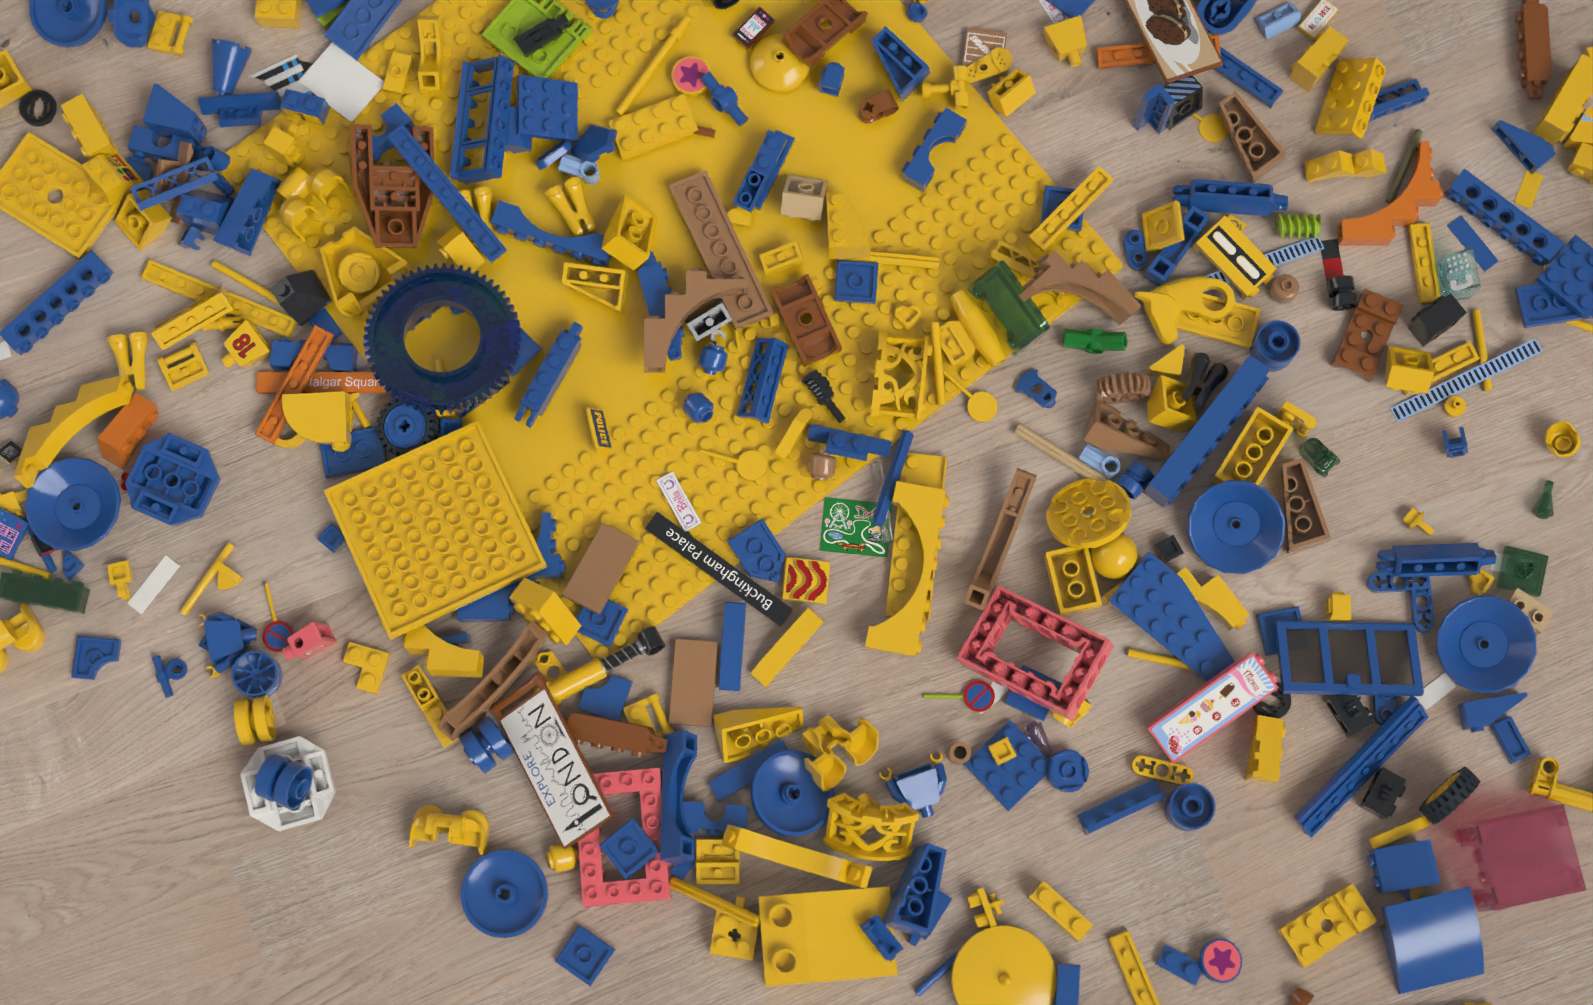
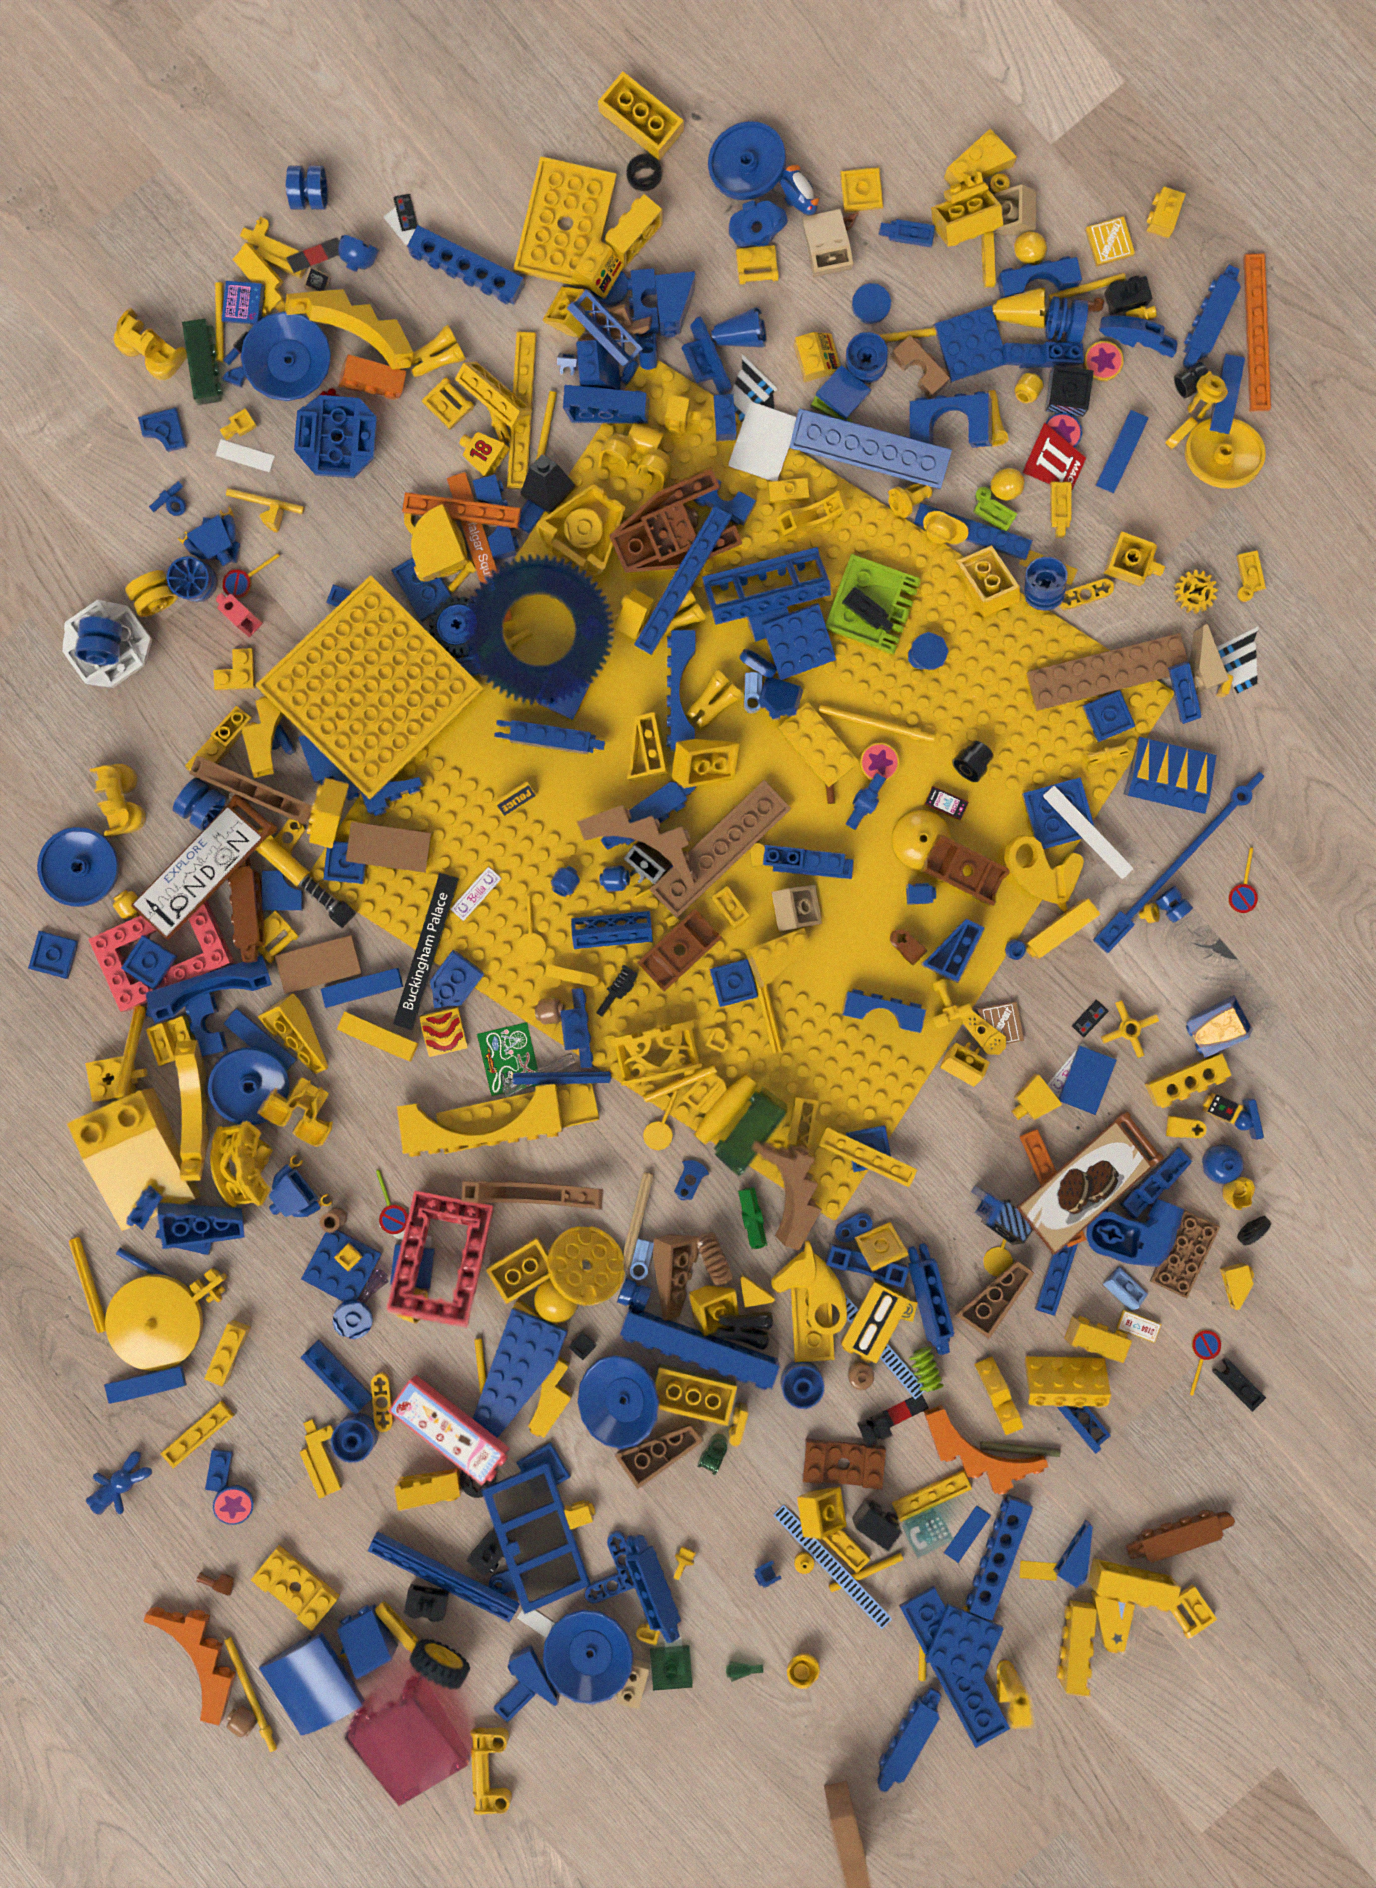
camera: 65 degrees right, 10 degrees up
(1201, 857) = (318, 1461): none -> yellow piece

